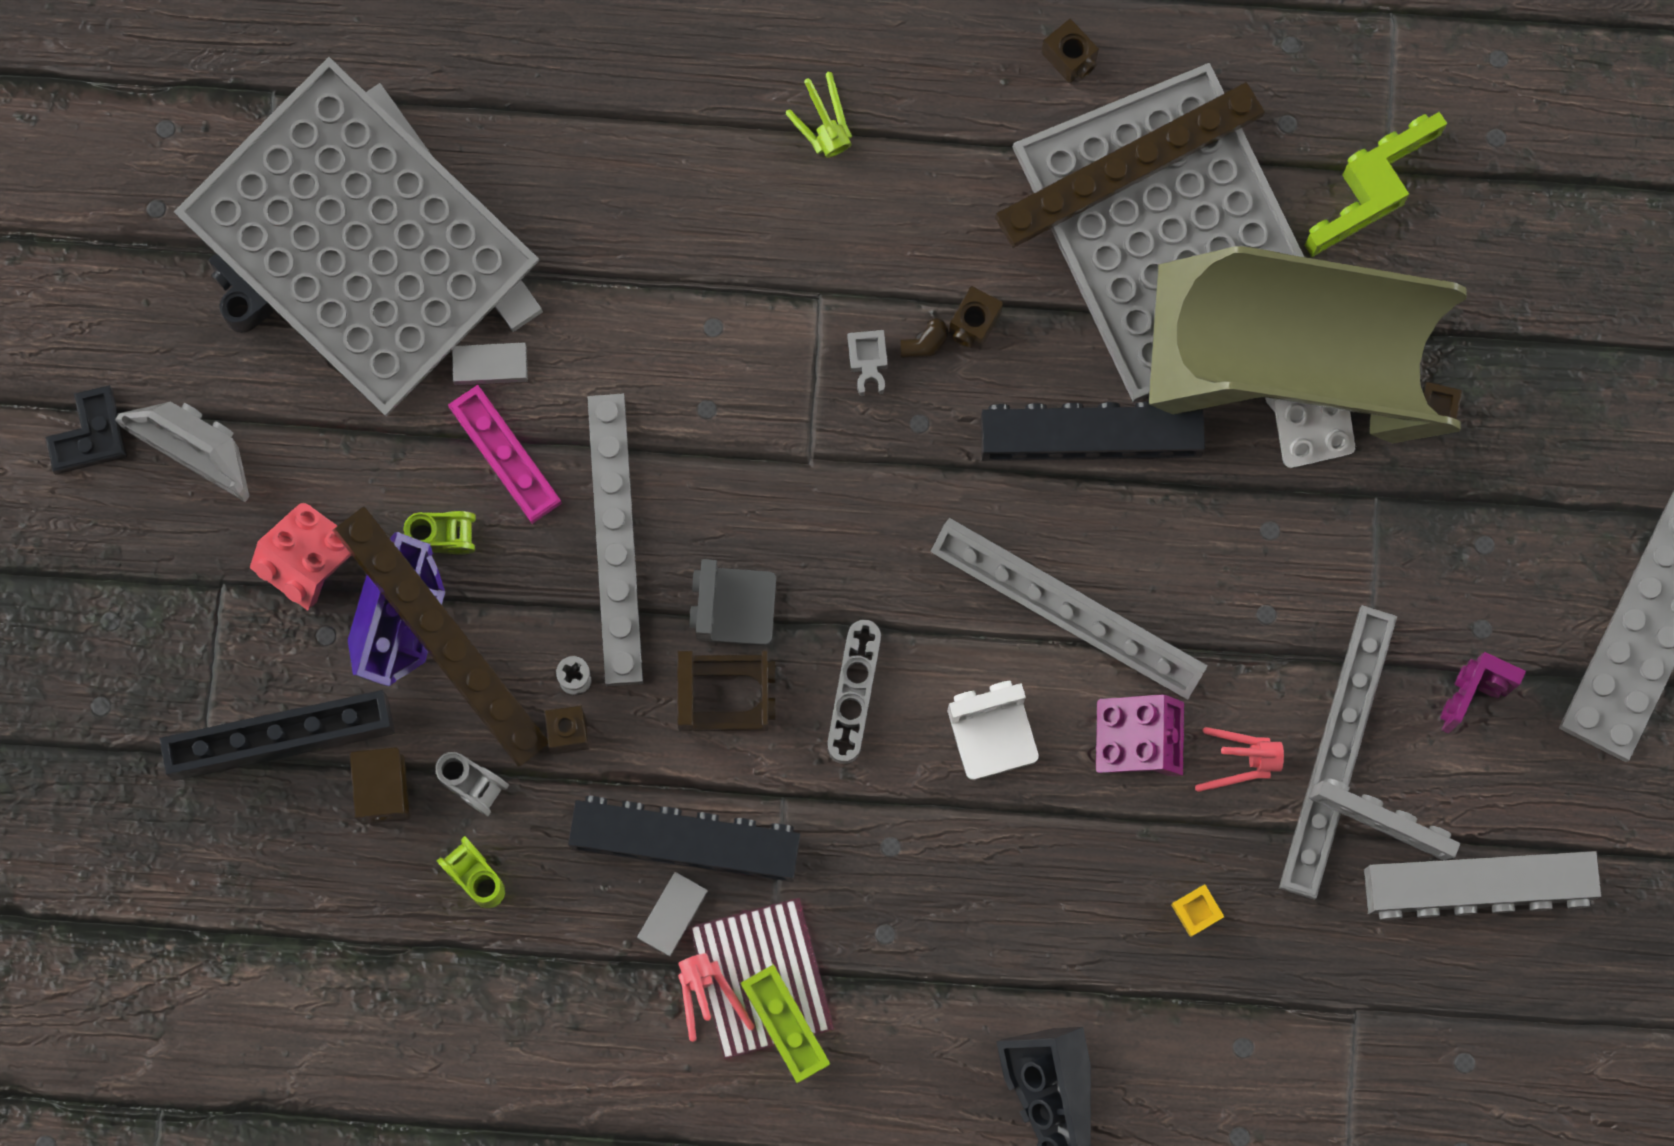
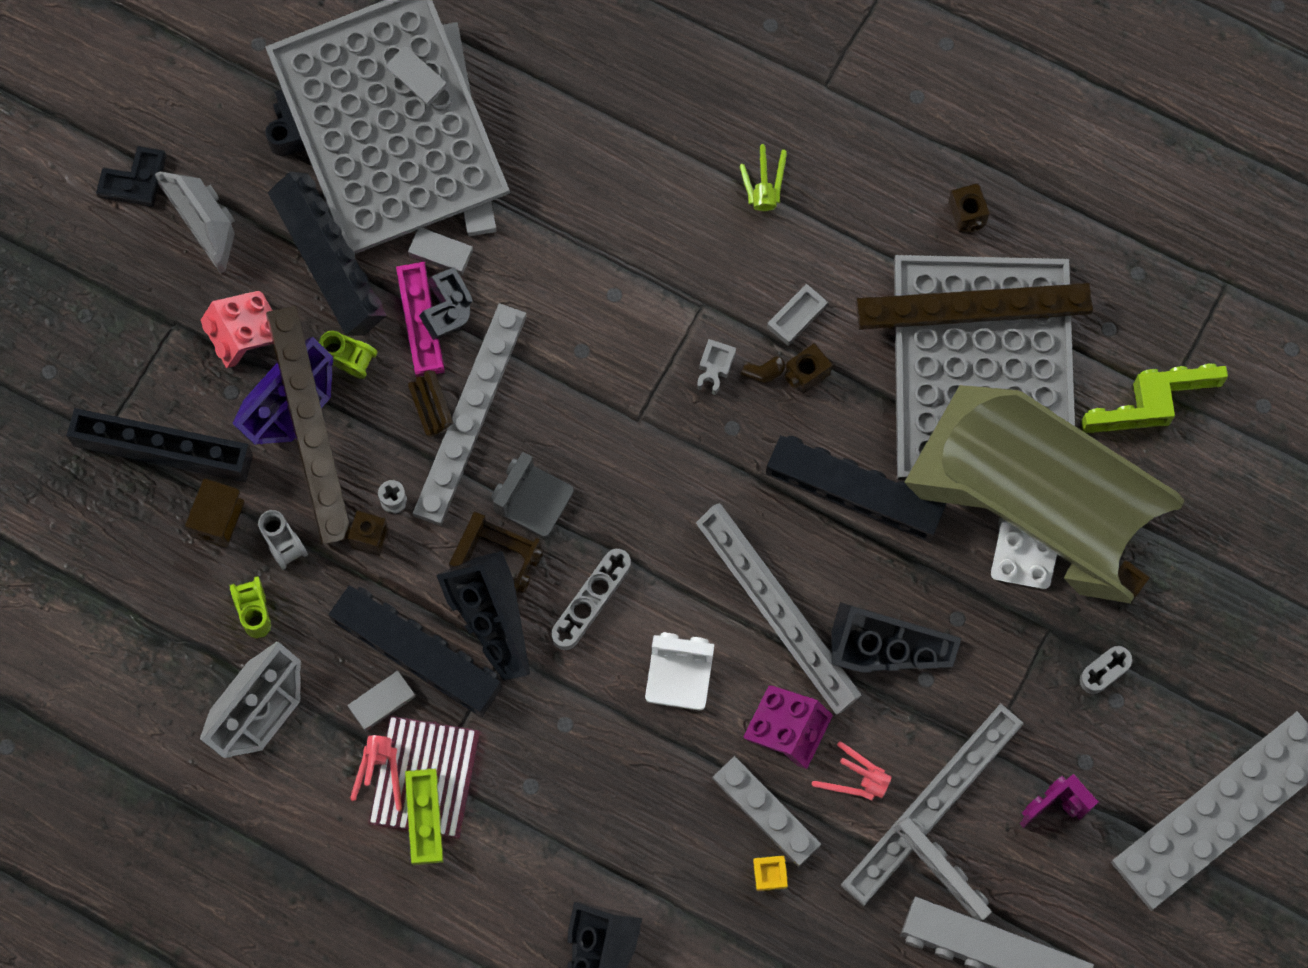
camera: 25 degrees right, 5 degrees down
(361, 425) = (327, 254): none -> black brick
(369, 170) = (416, 75): none -> light grey tile
(531, 983) = (254, 703): none -> light grey wedge
(538, 422) = (453, 307): none -> black plate
(561, 551) = (427, 406): none -> dark brown tile
(742, 749) = (488, 603): none -> black wedge
(932, 260) = (797, 314): none -> light grey tile
(1160, 843) = (766, 811): none -> light grey plate
(1196, 597) = (879, 642): none -> black wedge
(1466, 519) = (1102, 664): none -> light grey beam

